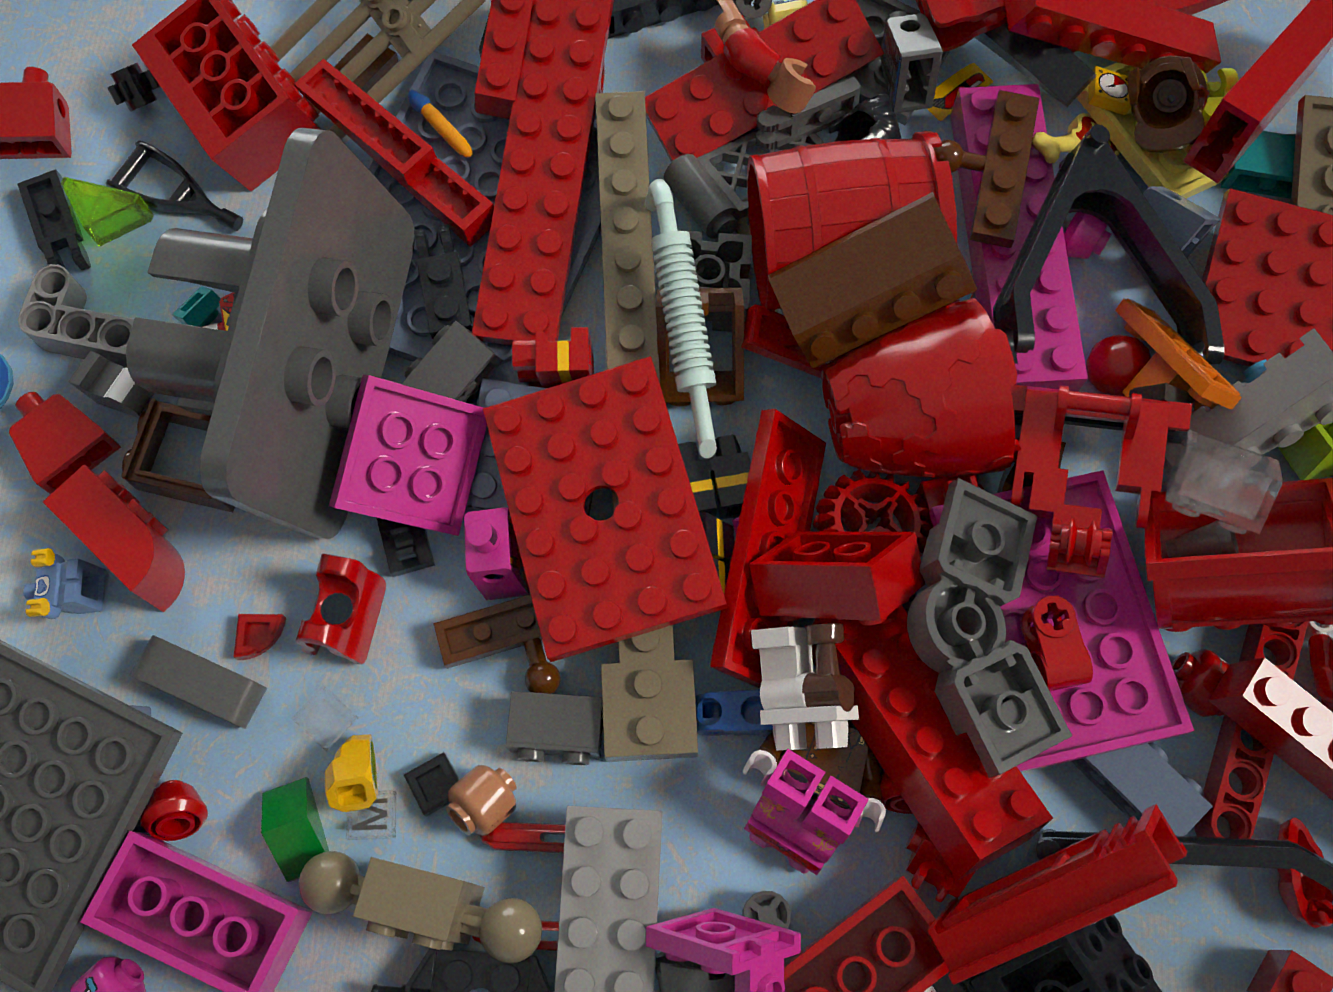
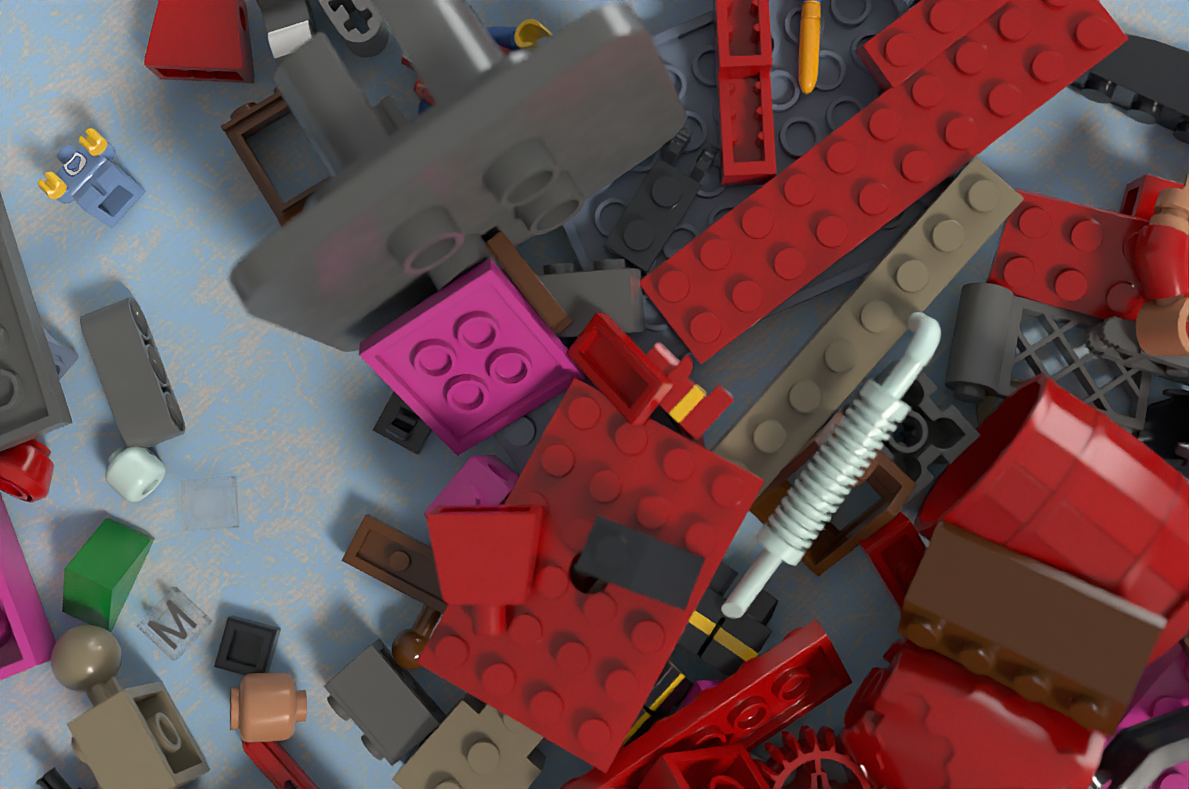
camera: 45 degrees right, 15 degrees up
(120, 535) = (171, 185): red brick -> none
(255, 740) = (134, 472): none -> light aqua piece
(257, 634) = (218, 373): red tile -> none
(344, 609) = (295, 435): red piece -> none
(352, 775) = (184, 582): yellow rock -> none
(423, 378) = (528, 283): none -> reddish brown tile
(504, 375) = (619, 369): none -> red tile
(526, 541) = (485, 558): none -> red torso
(620, 457) = (640, 563): none -> black slope

